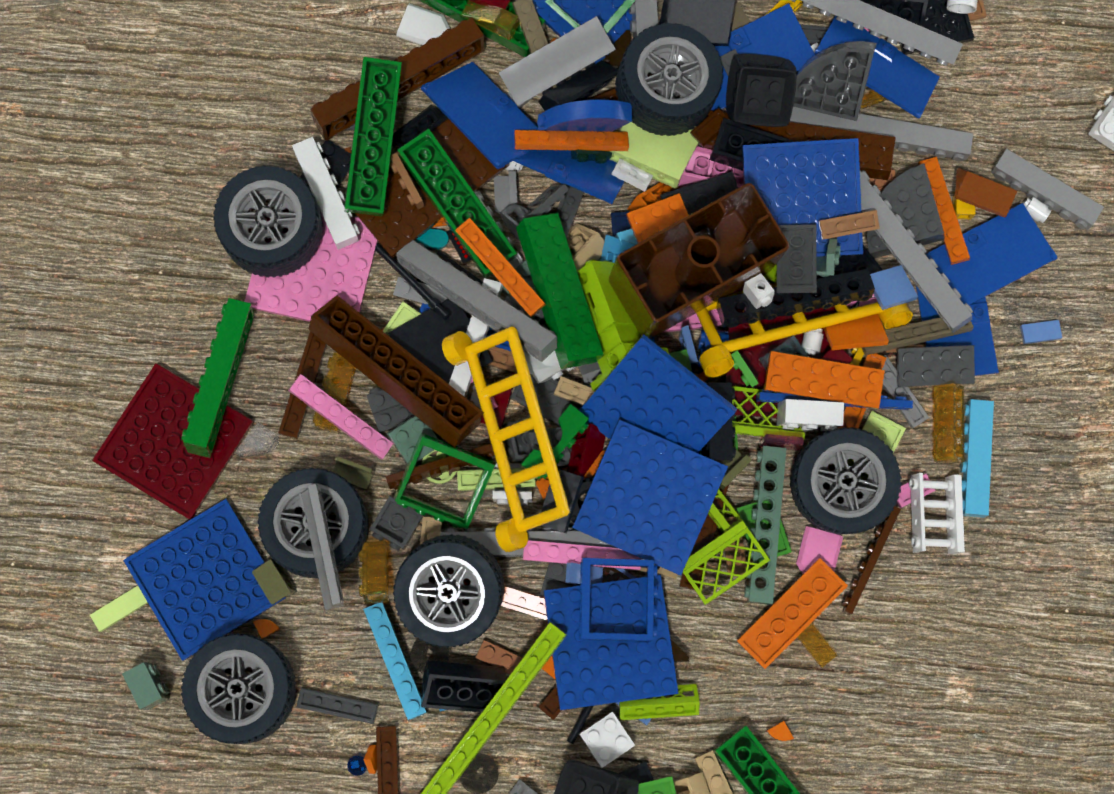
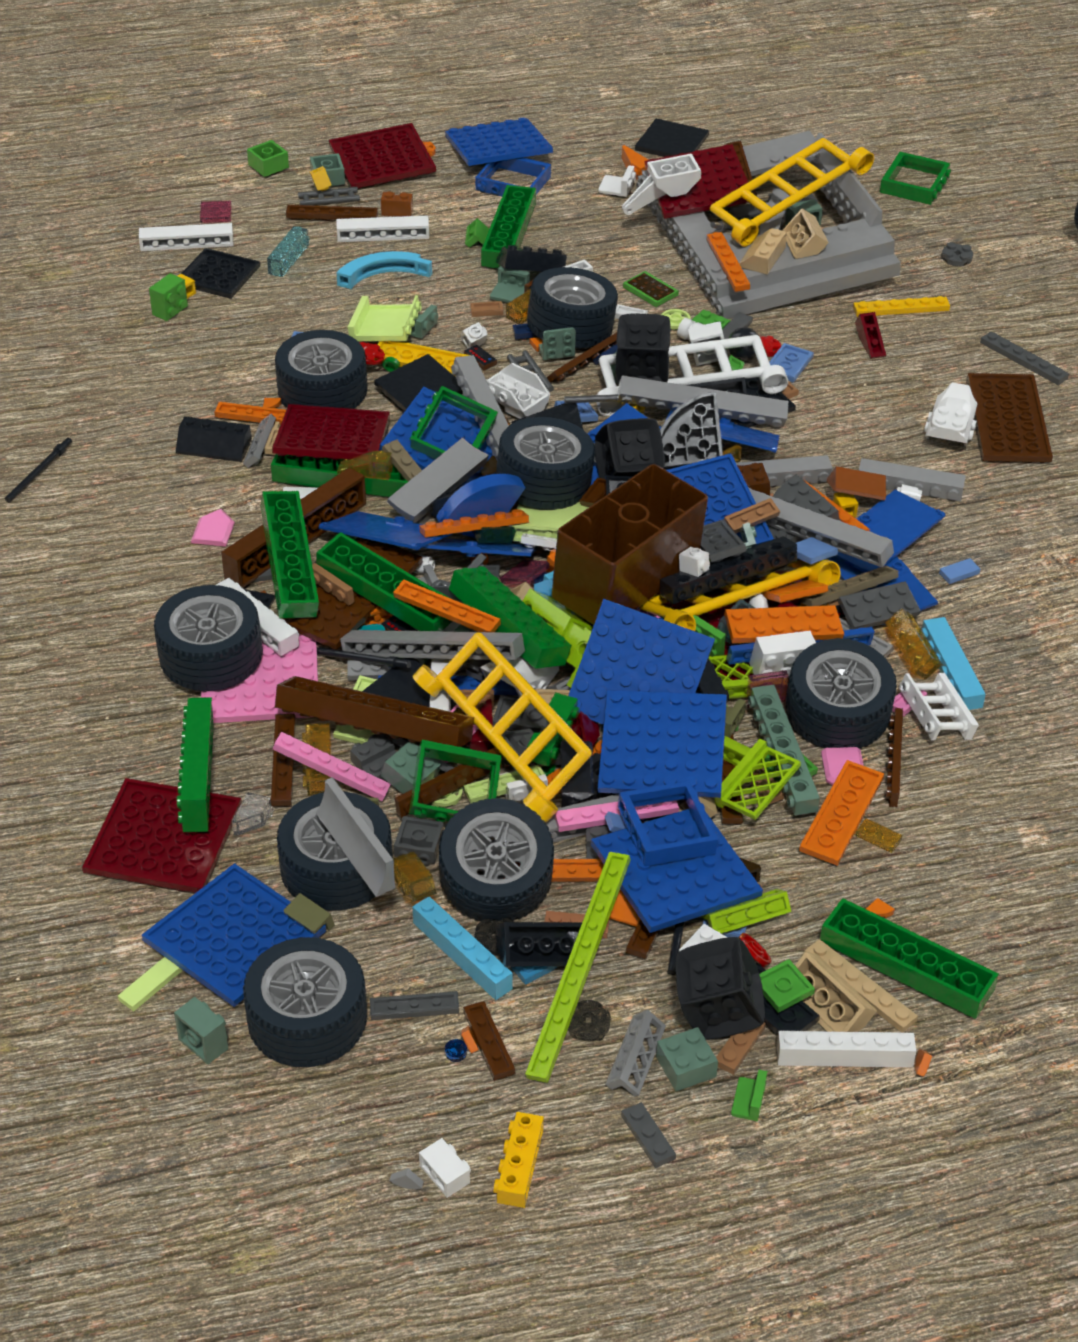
camera: 15 degrees left, 35 degrees down
(324, 43) = (213, 529): none -> bright pink tile
(604, 212) = (524, 572): none -> clear pink tile
(646, 749) = (756, 950): none -> red wheel

